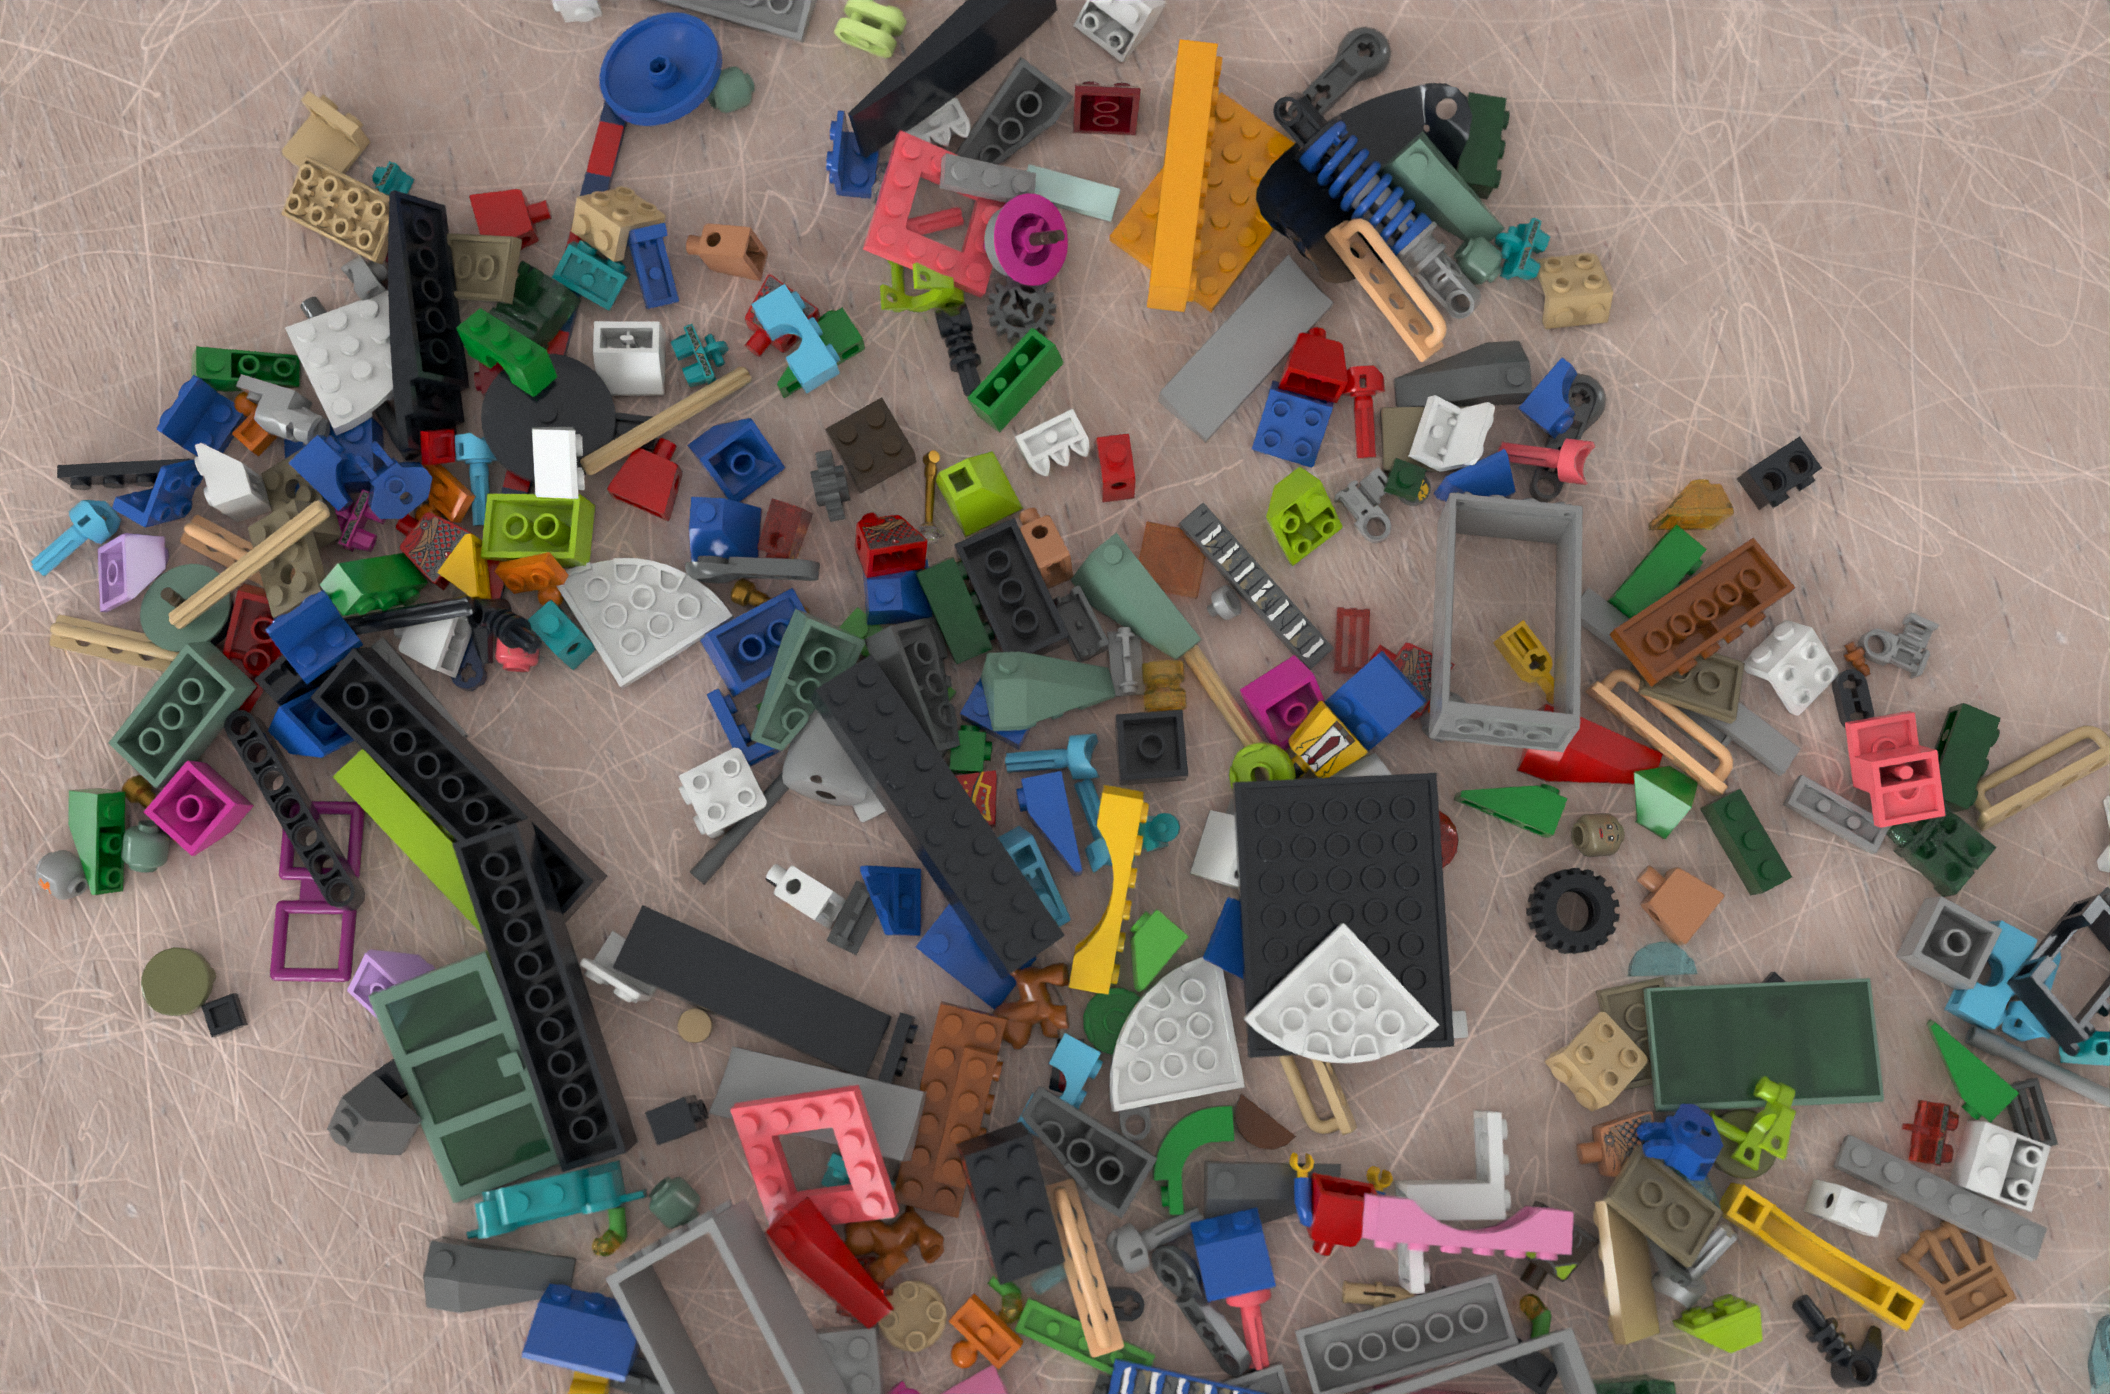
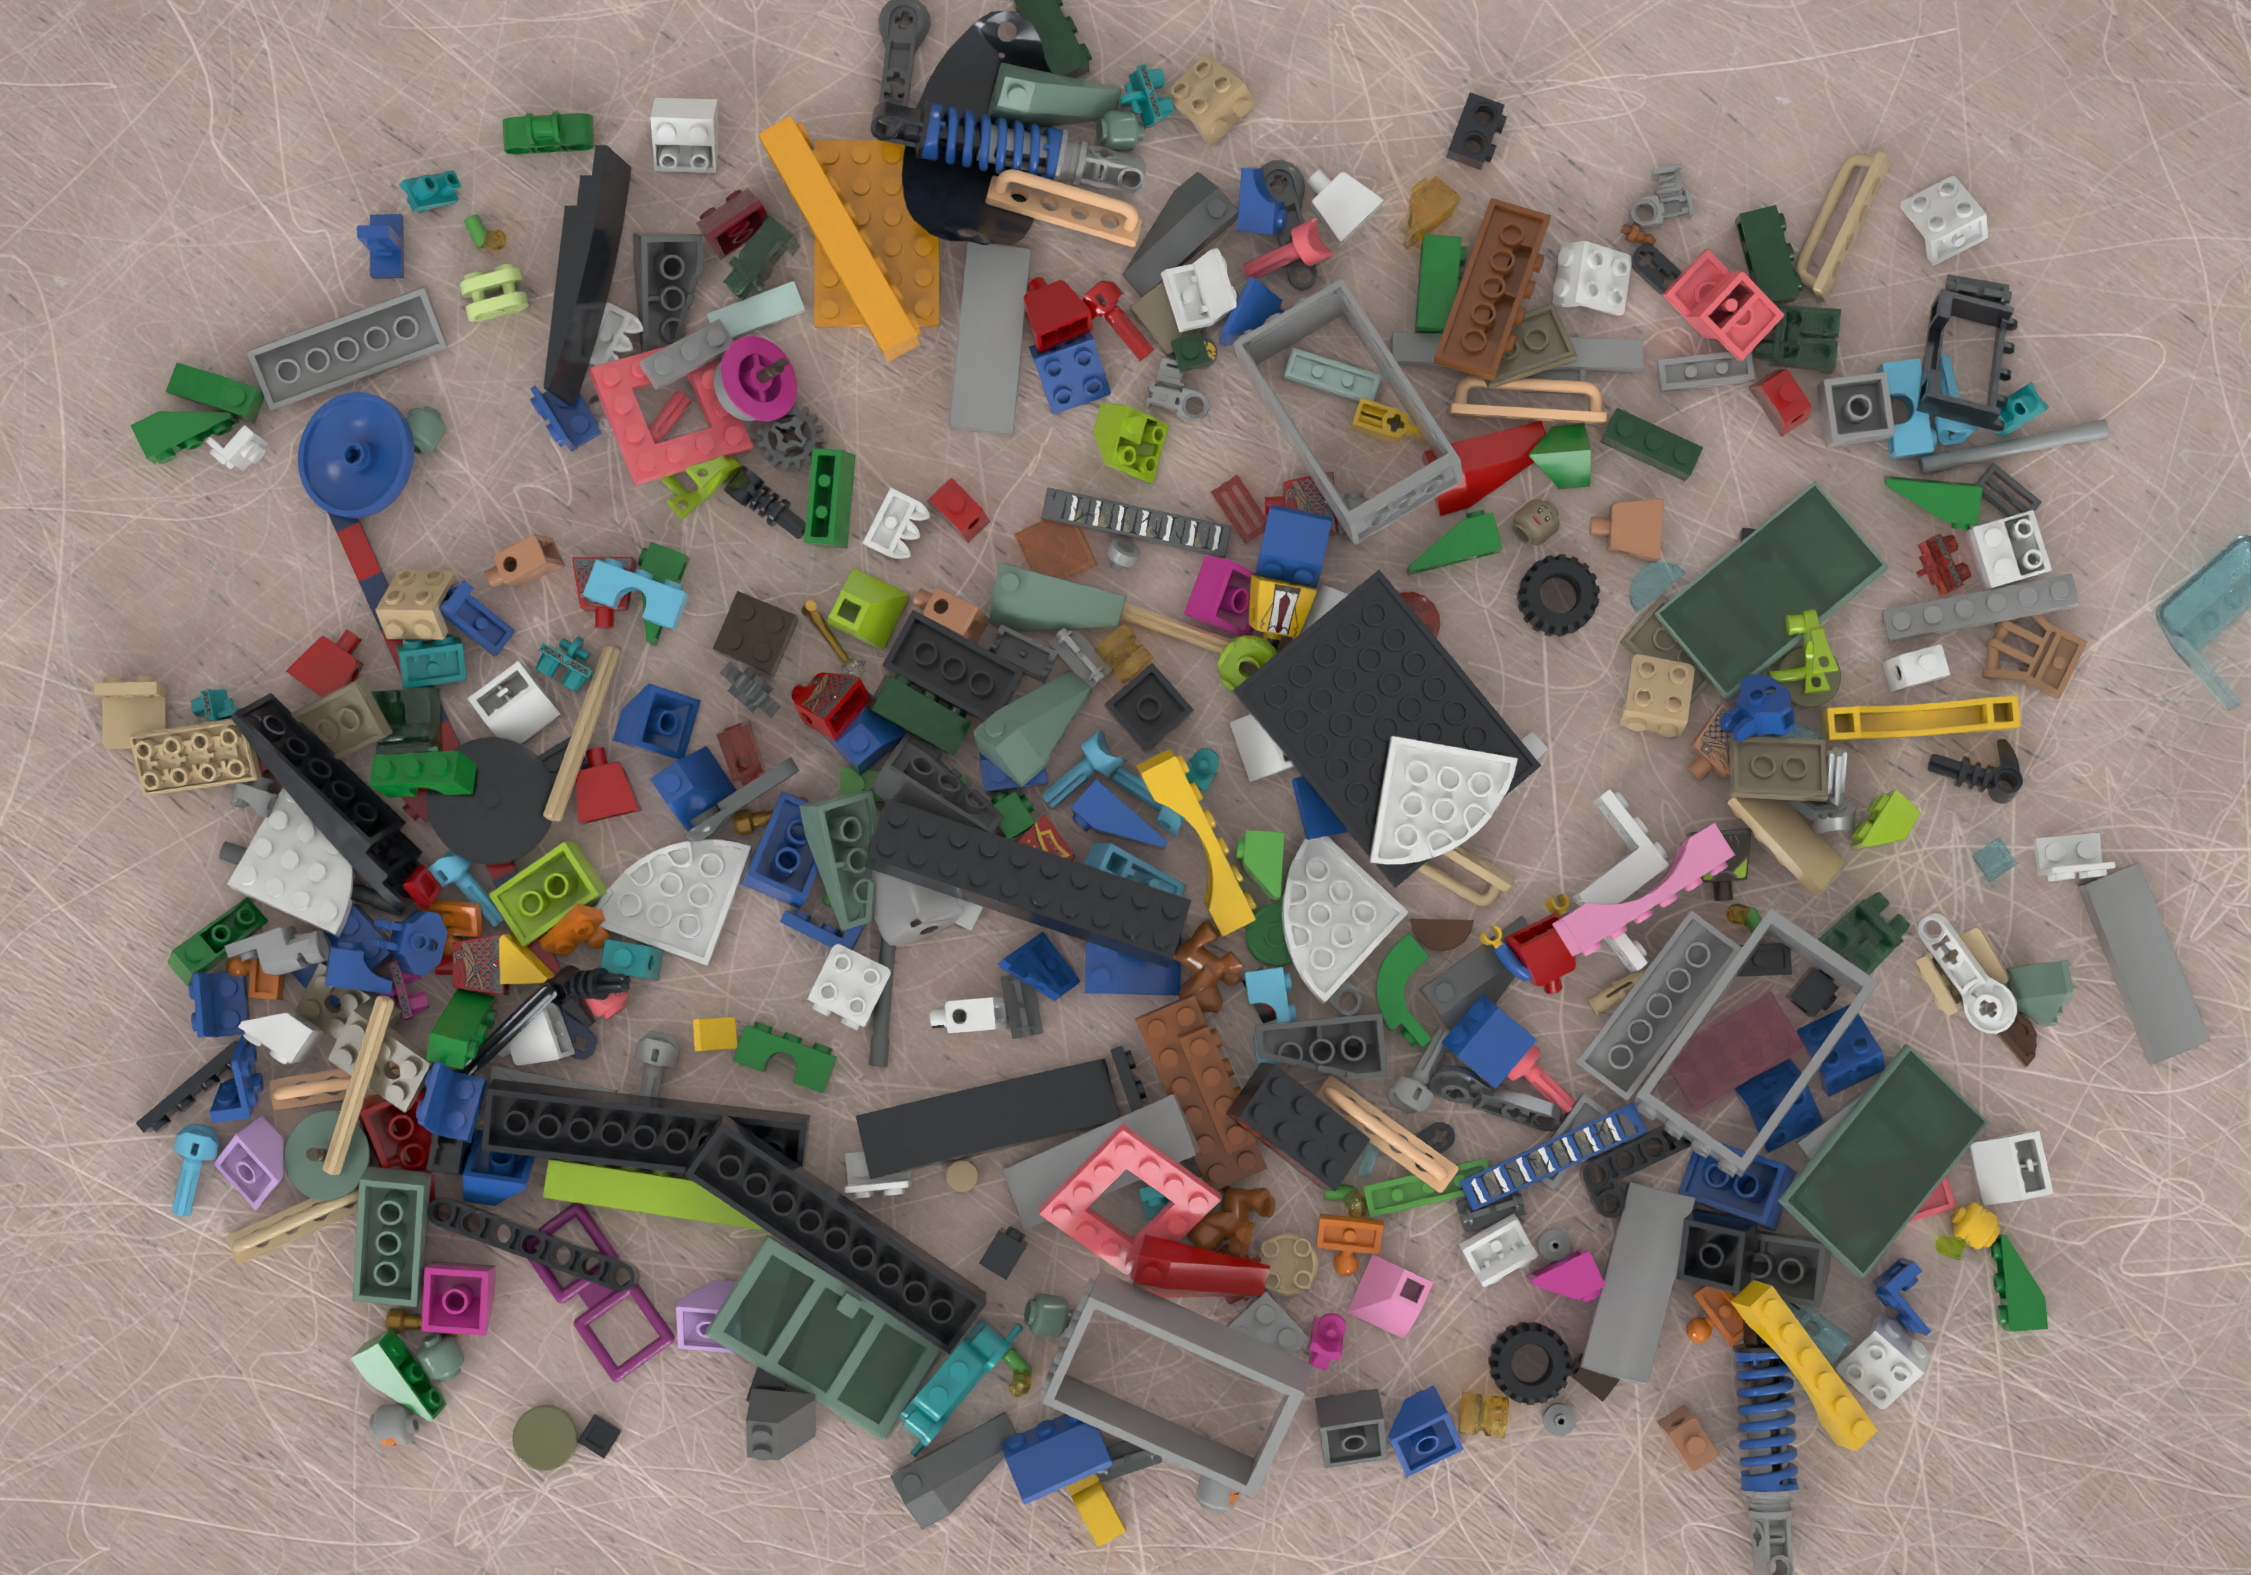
camera: 30 degrees left, 5 degrees up
(520, 730) = (655, 1061): none -> light grey piece
(556, 462) = (531, 830): white slope -> none
(578, 746) = (715, 1034): none -> yellow slope
(642, 835) = (813, 1064): none -> green arch
(1106, 147) = (759, 257): none -> clear green hips
(1508, 586) = (1331, 376): none -> light aqua tile
(1622, 453) = (1342, 205): none -> white torso
(1888, 888) = (1782, 400): none -> red torso

